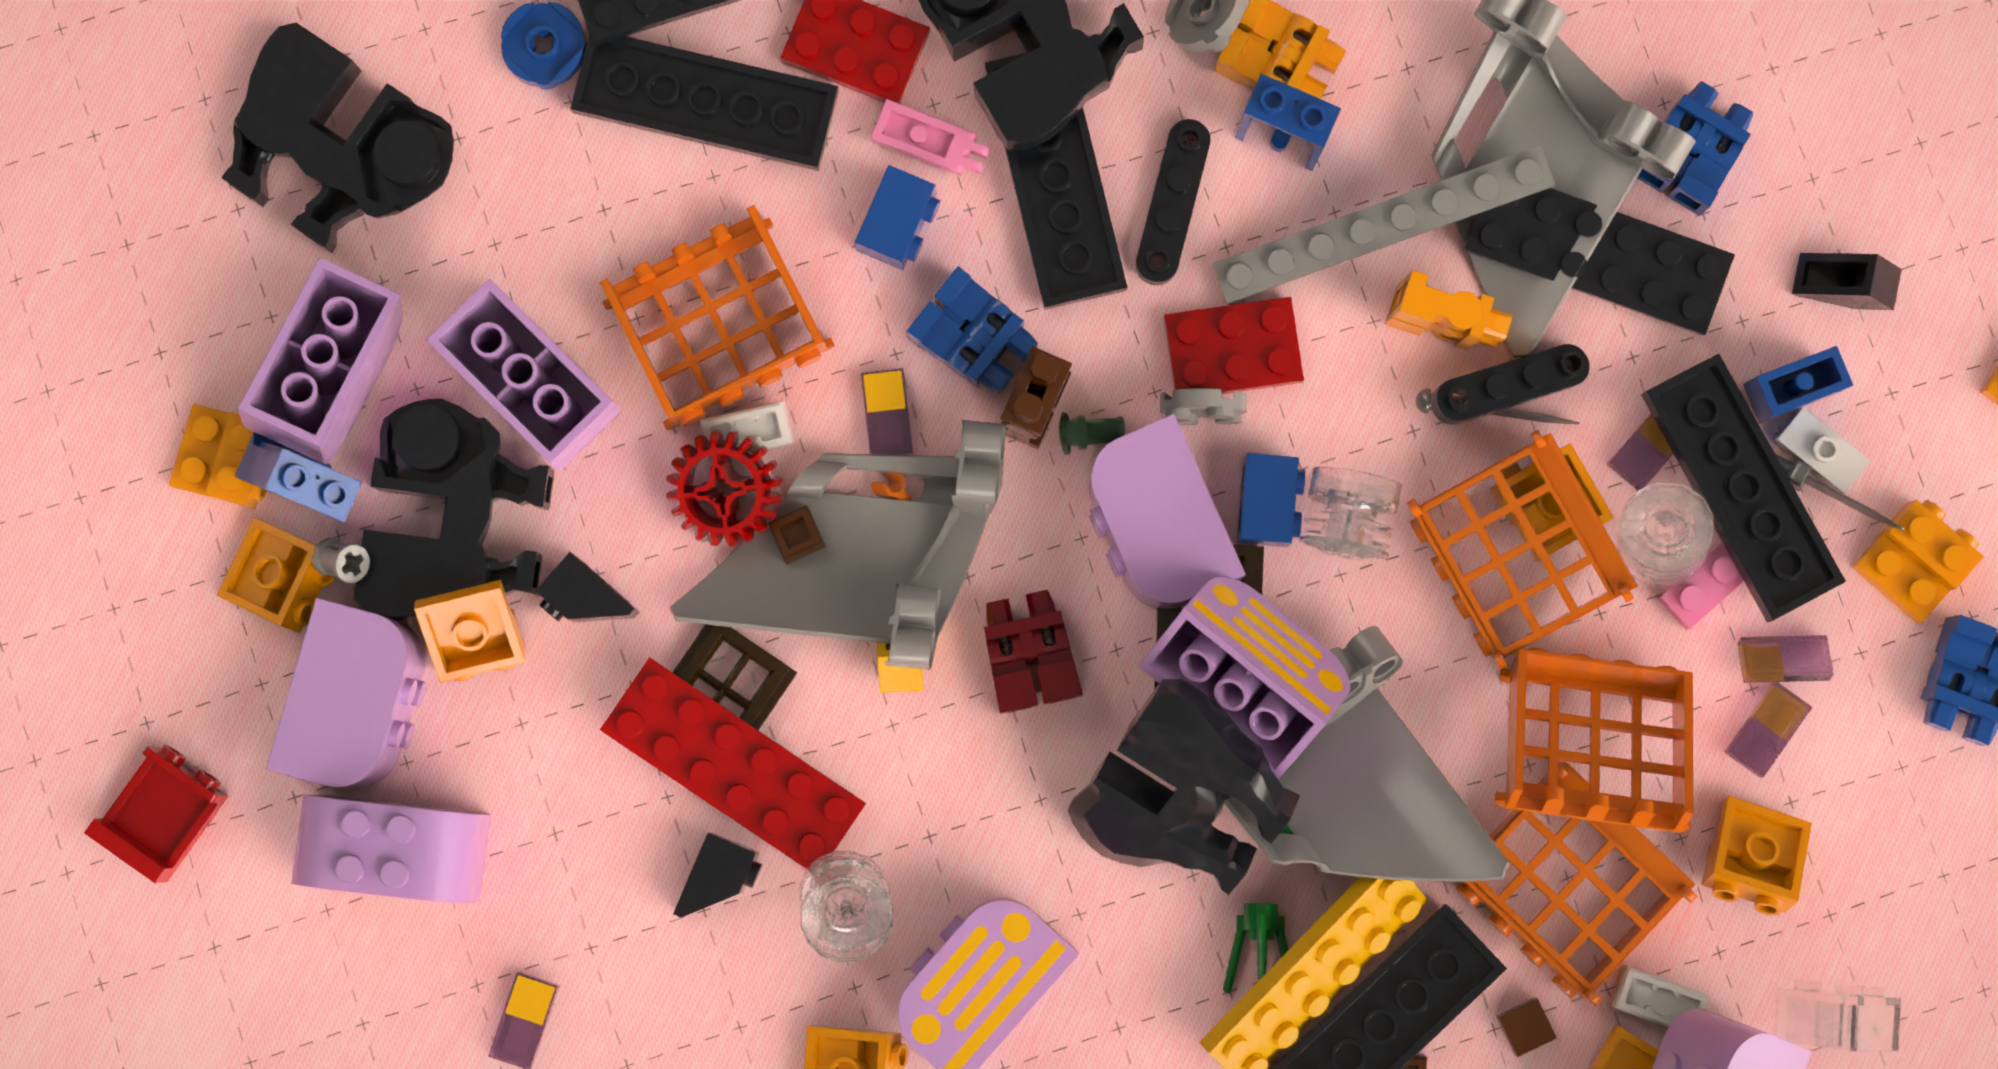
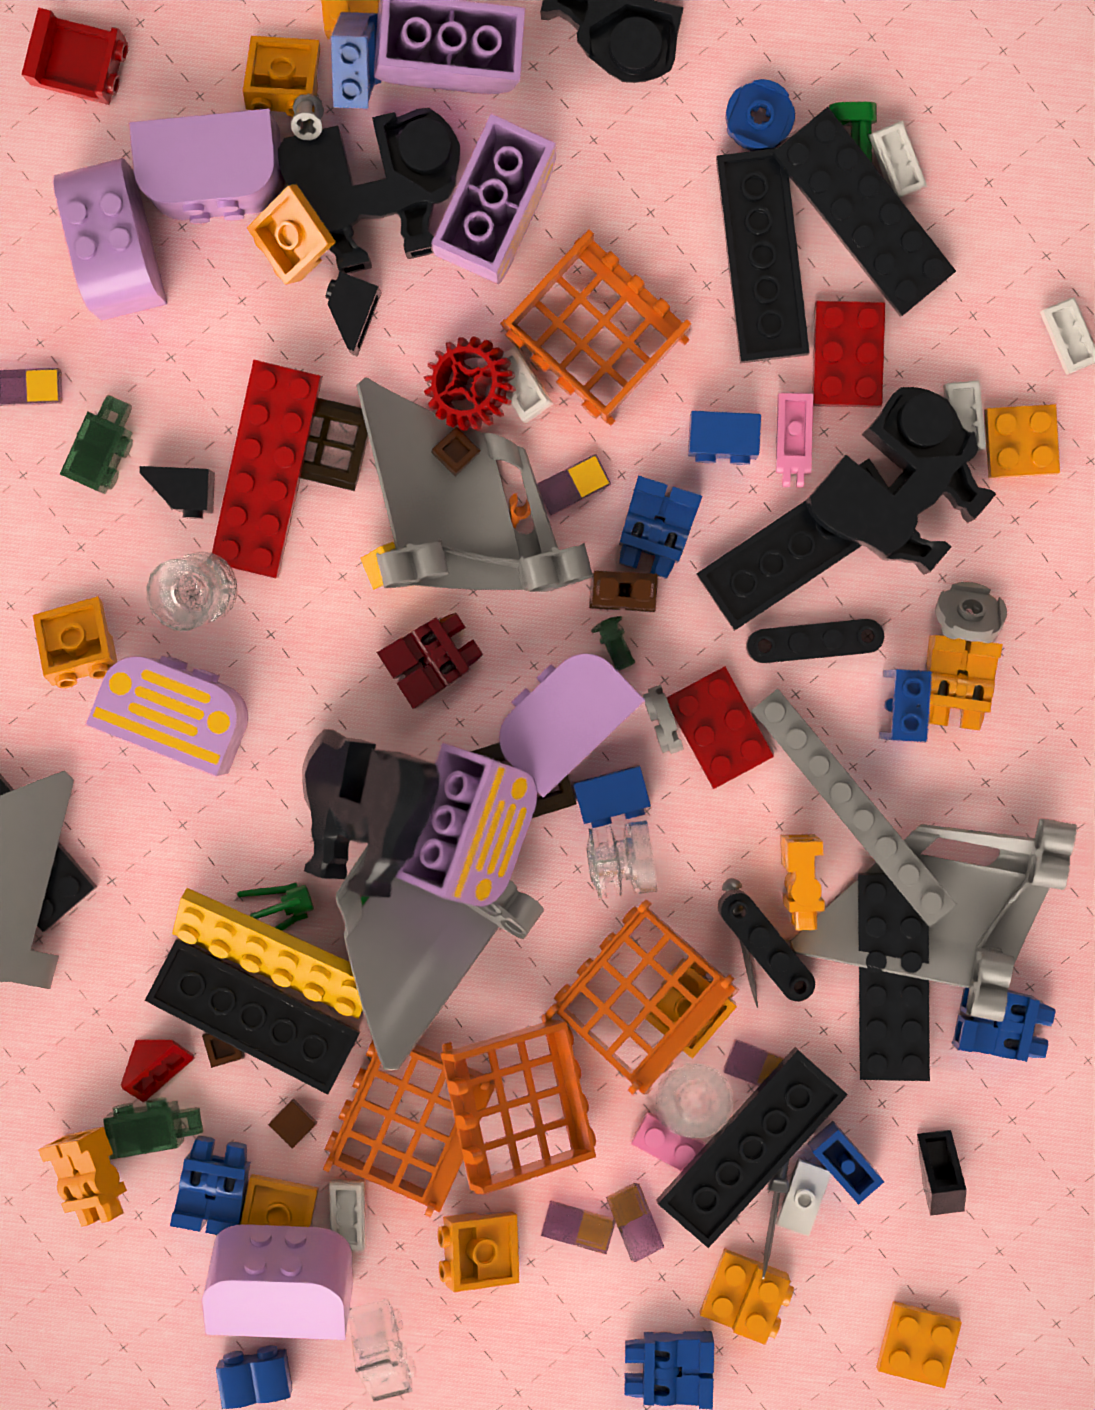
camera: 70 degrees right, 5 degrees up
(631, 956) = (100, 447): none -> clear green brick

